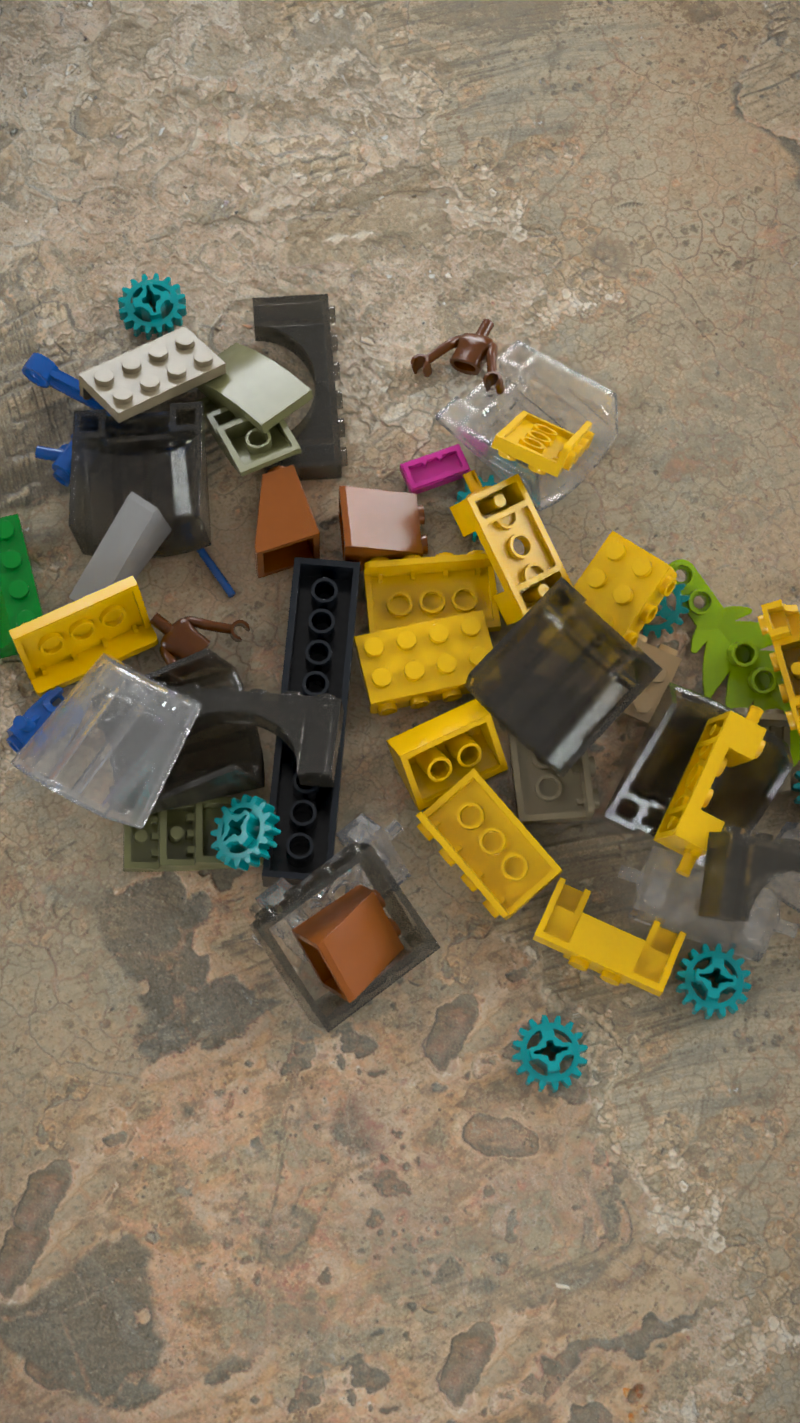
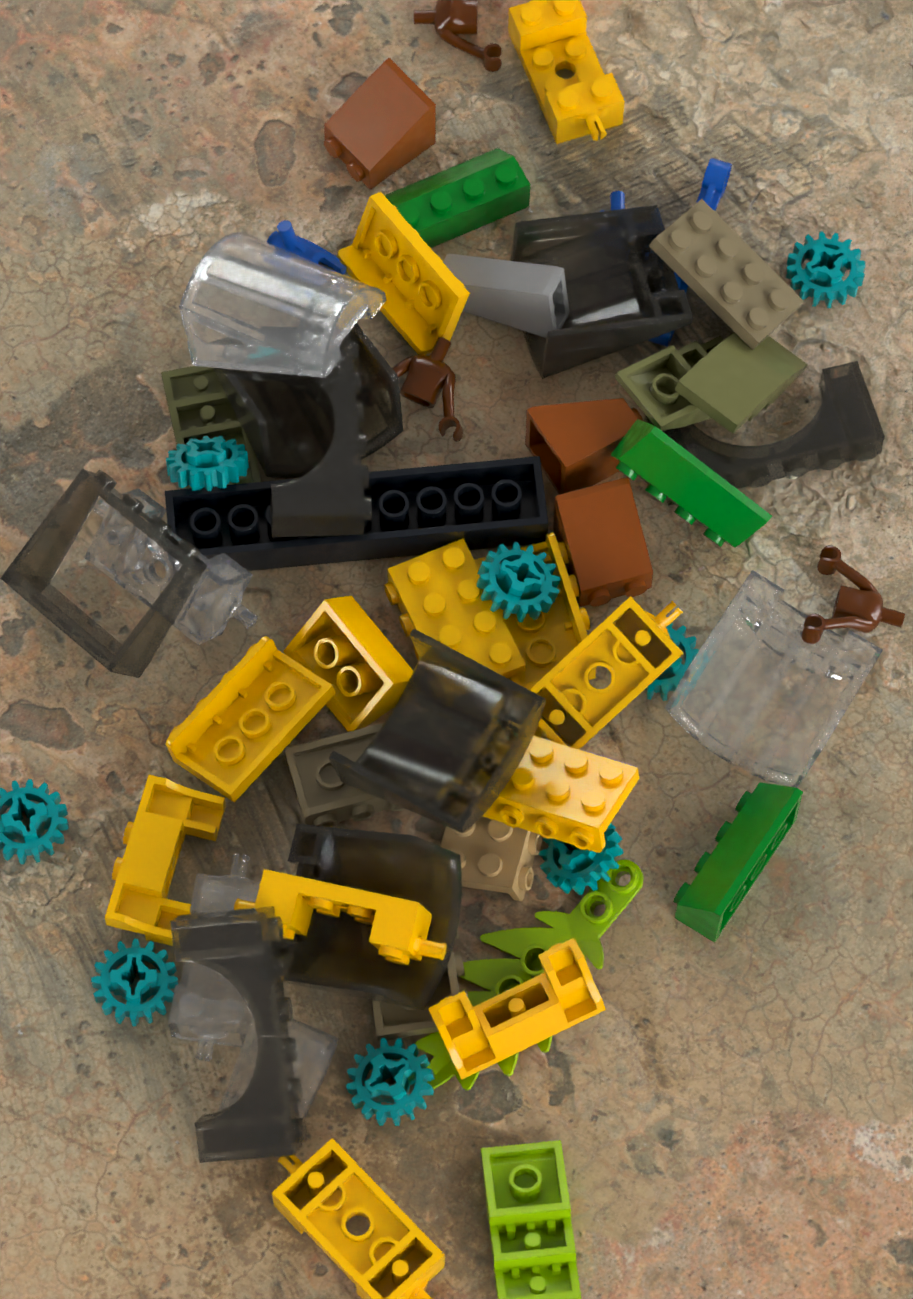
camera: 85 degrees right, 5 degrees down
(216, 572) = (520, 399): blue piece -> none
(350, 942) = (100, 582): dark orange slope -> none
(351, 444) = (688, 484): none -> green slope
(409, 598) = (518, 582): none -> teal gear
(434, 469) = (695, 594): dark pink plate -> none
(542, 444) = (736, 680): yellow bracket -> none
(680, 483) = (737, 859): none -> green slope

